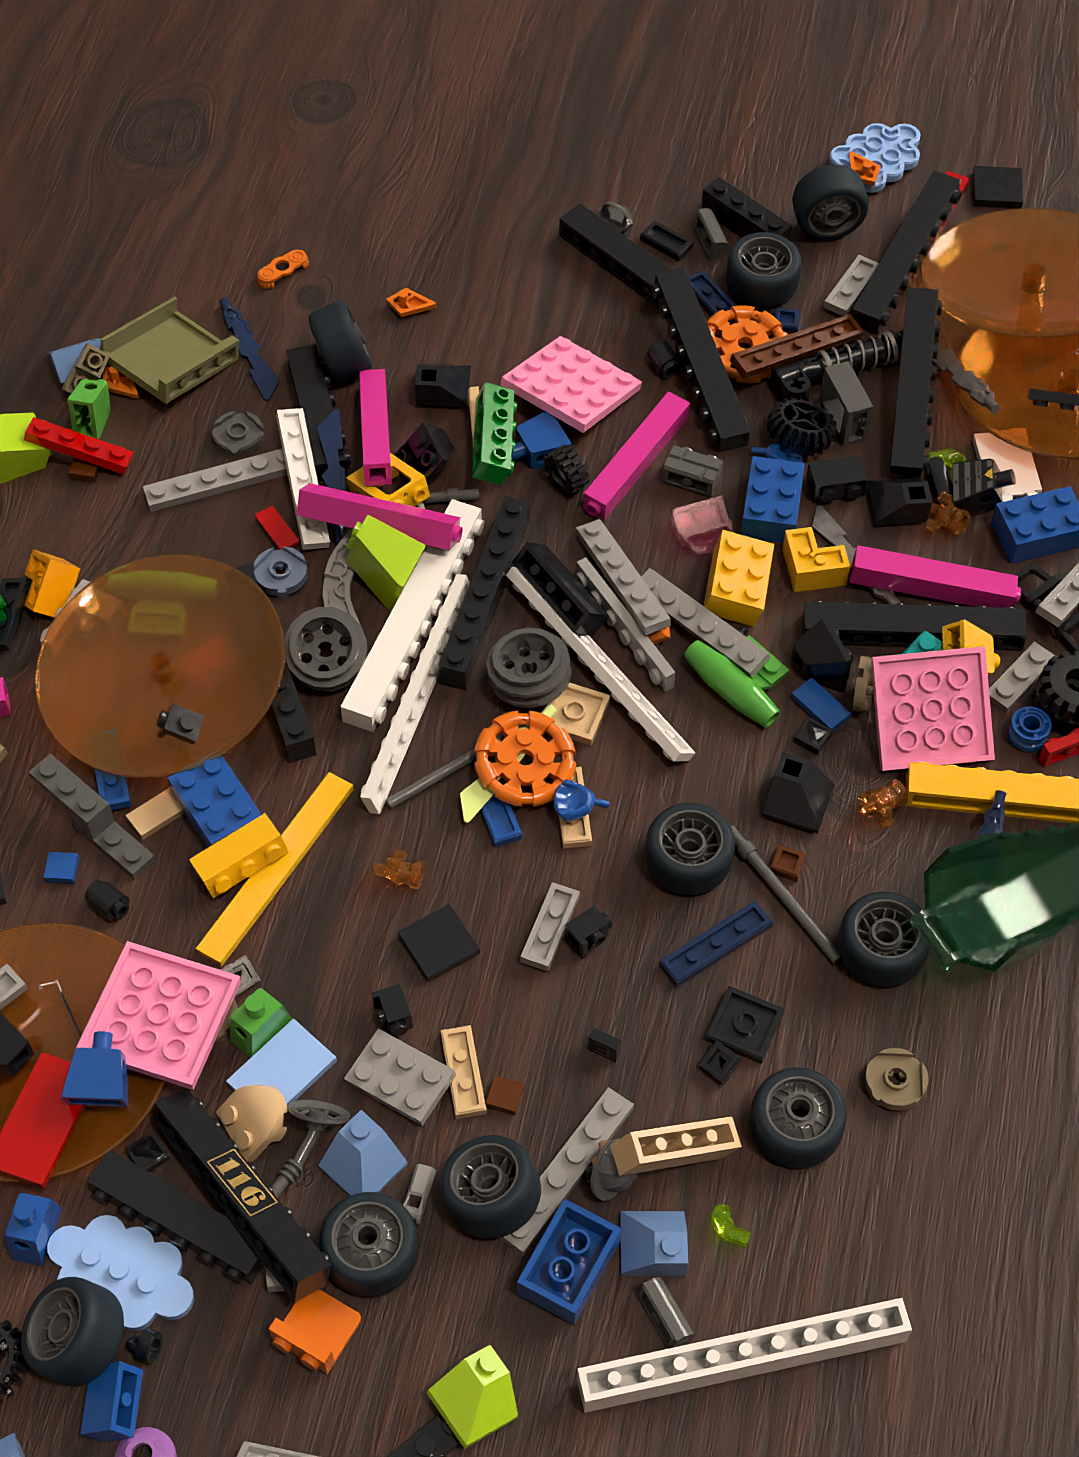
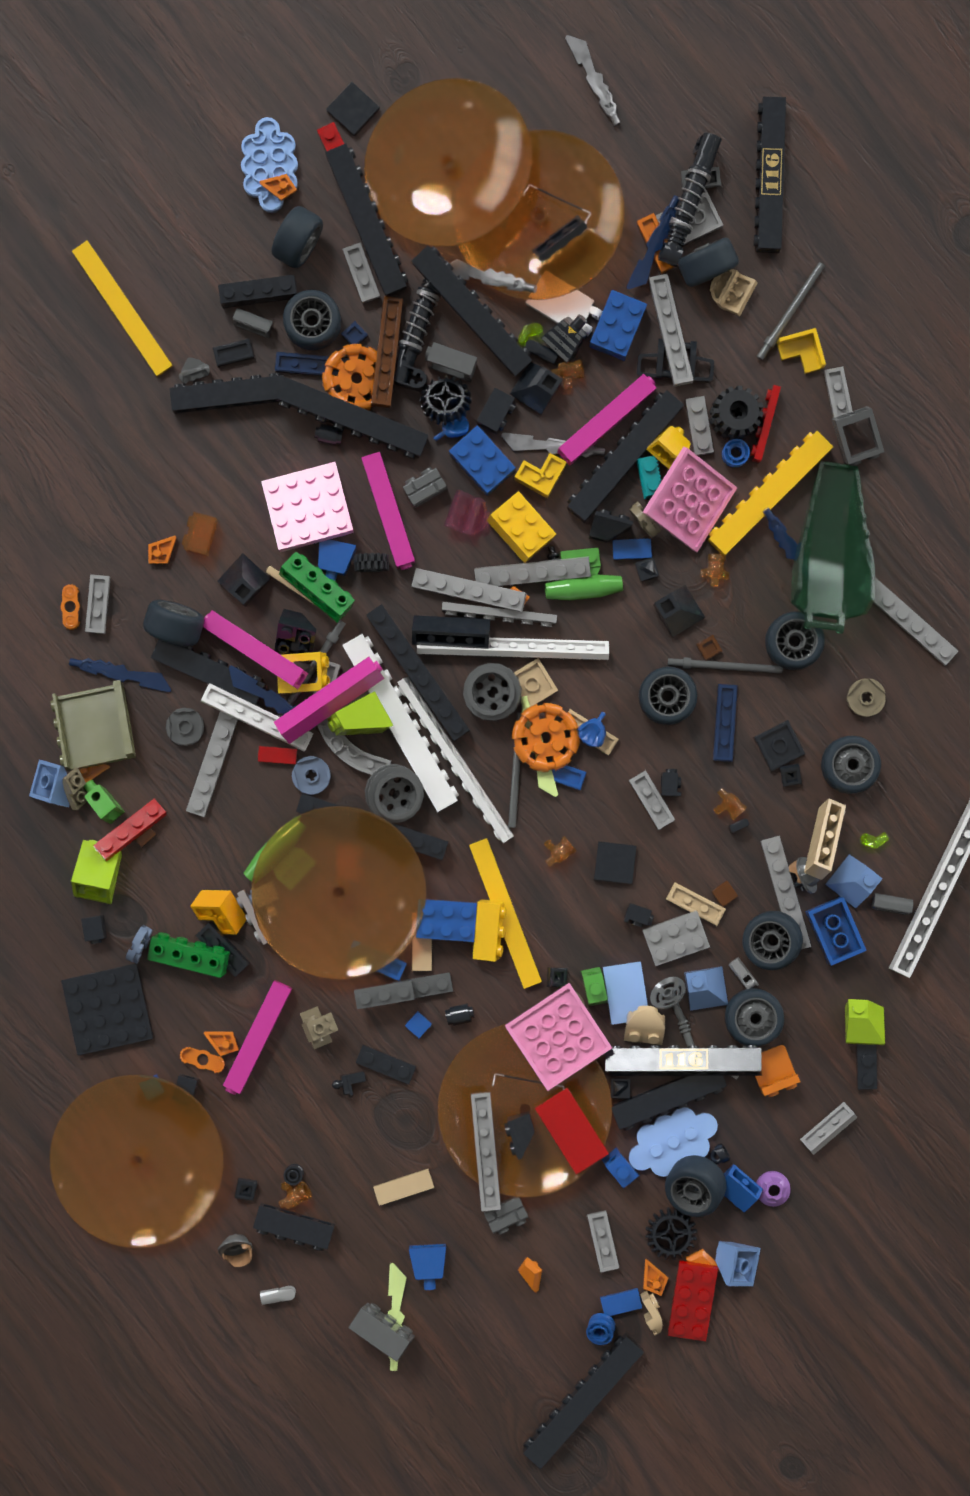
camera: 50 degrees left, 30 degrees up
(97, 1075) = (575, 1091): blue torso -> none
(179, 723) = (392, 911): black bracket -> none
(305, 285) = (97, 604): none -> light grey plate
(456, 319) = (200, 534): none -> clear orange brick
(619, 138) = (122, 308): none -> yellow tile
(623, 1018) = (730, 803): none -> clear orange piece
(1034, 1062) = (913, 624): none -> light grey plate

